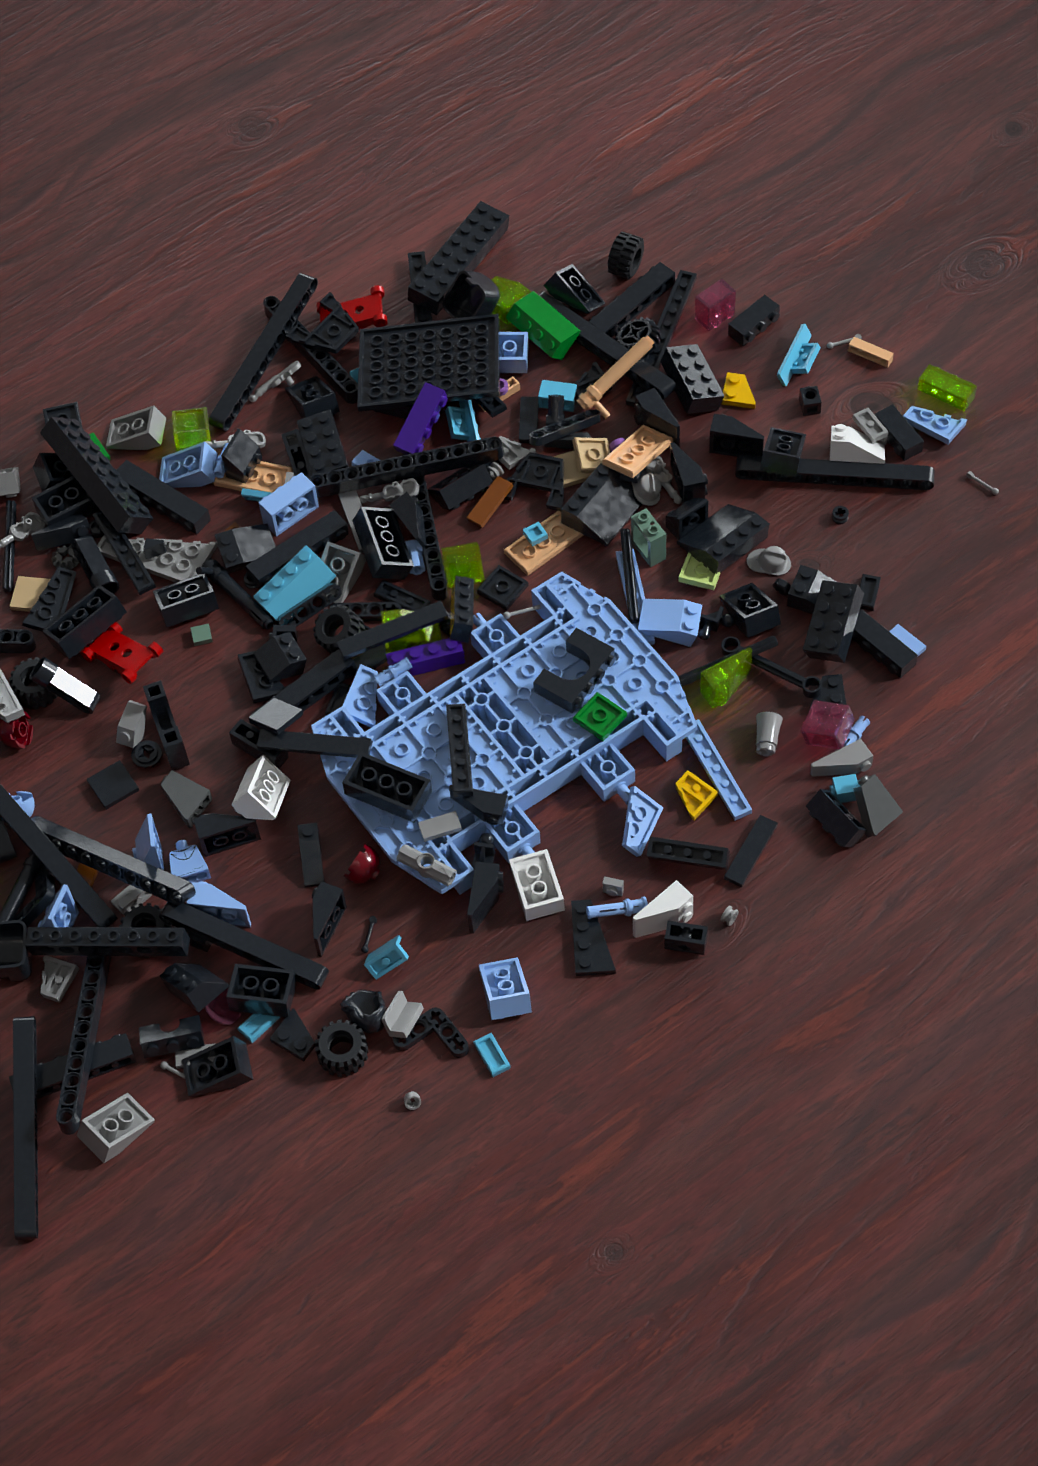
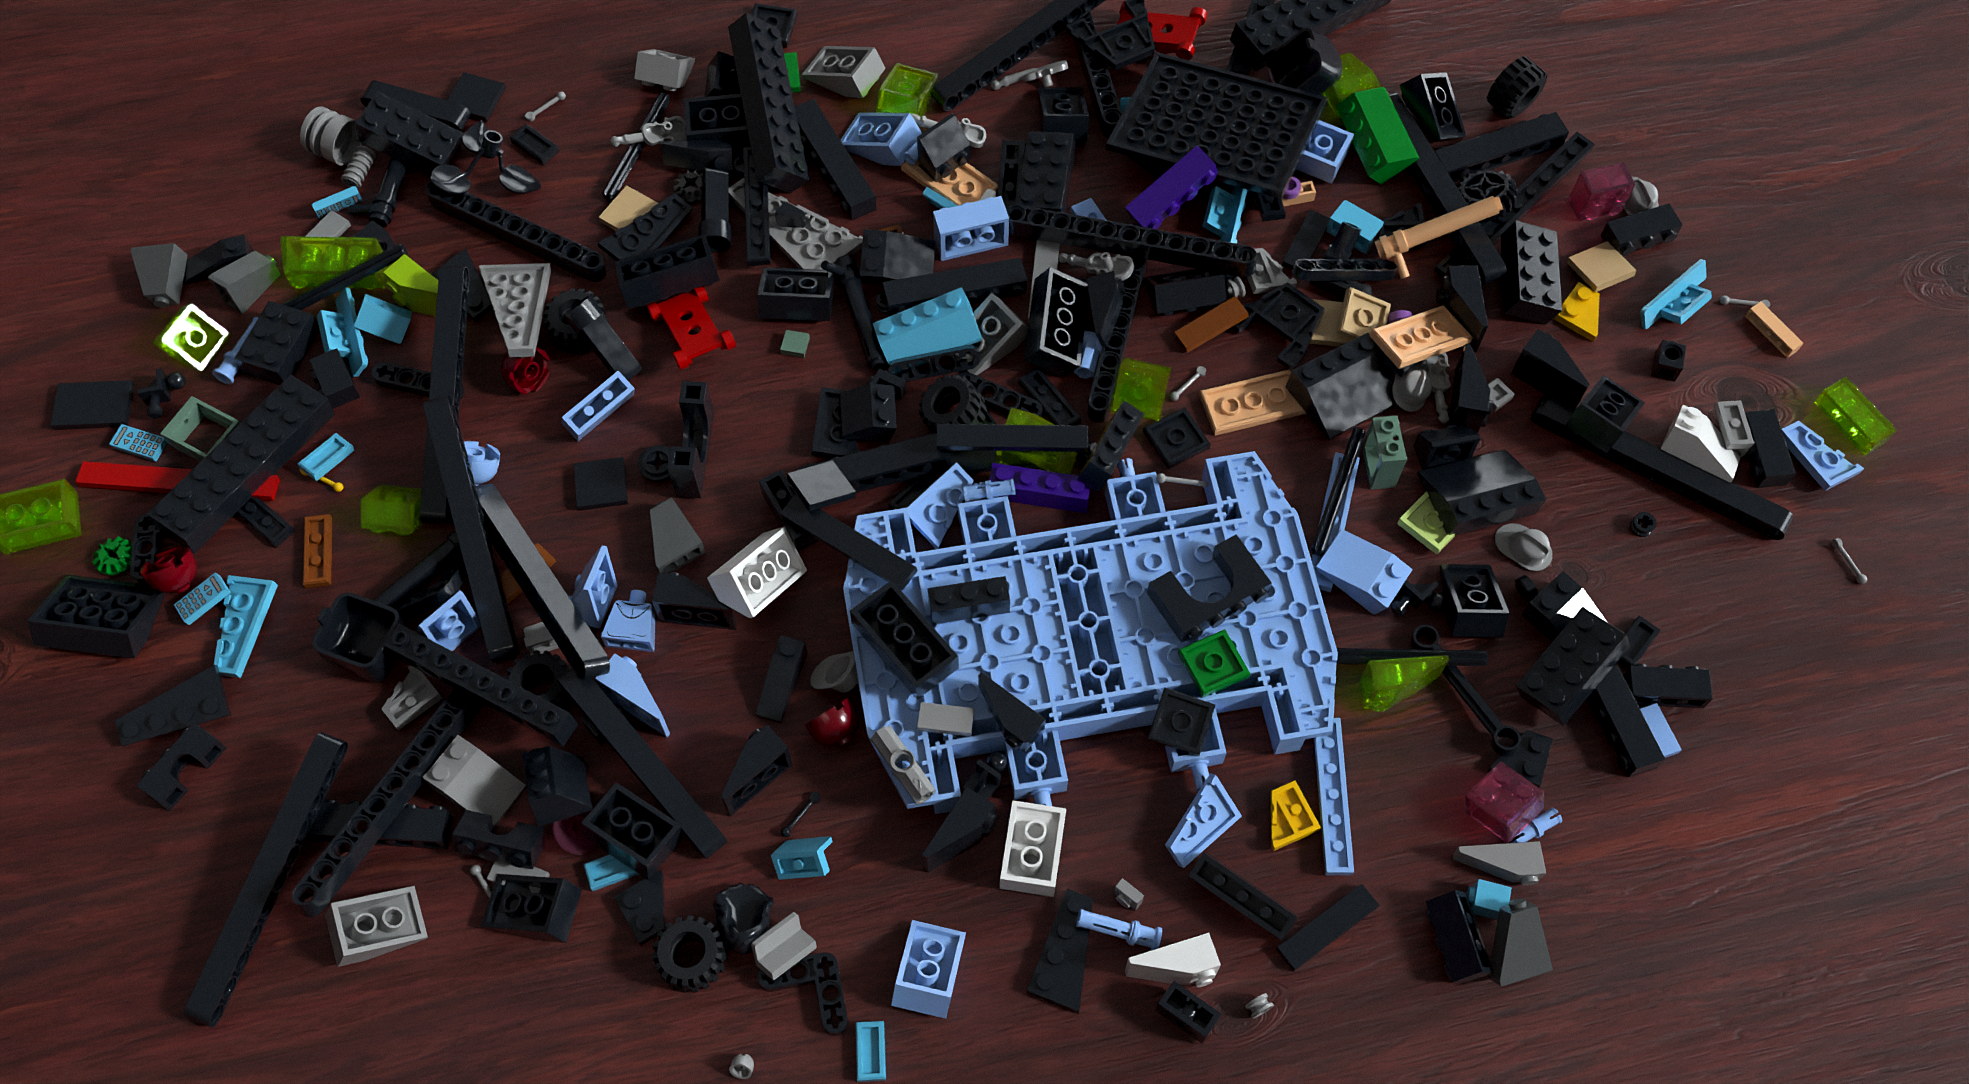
camera: 20 degrees right, 5 degrees up
(84, 733) = (598, 406): none -> light blue brick
(129, 1008) = (474, 780): none -> light grey slope
(132, 724) = (655, 420): light grey slope -> none
(348, 833) = (836, 673): none -> light grey piece
(417, 744) = (968, 600): none -> black brick
(459, 750) = (1015, 632): black tile -> none
(497, 537) = (1200, 372): none -> light grey hinge
(535, 534) = (1246, 388): medium azure plate -> none
(596, 762) = (1181, 721): none -> black tile
(708, 468) = (1499, 394): none -> light grey plate
(738, 355) = (1601, 266): none -> tan tile
(744, 297) = (1643, 197): none -> light grey piece
(767, 732) = (1420, 776): light grey plant -> none
(901, 609) = (1669, 686): none -> black brick

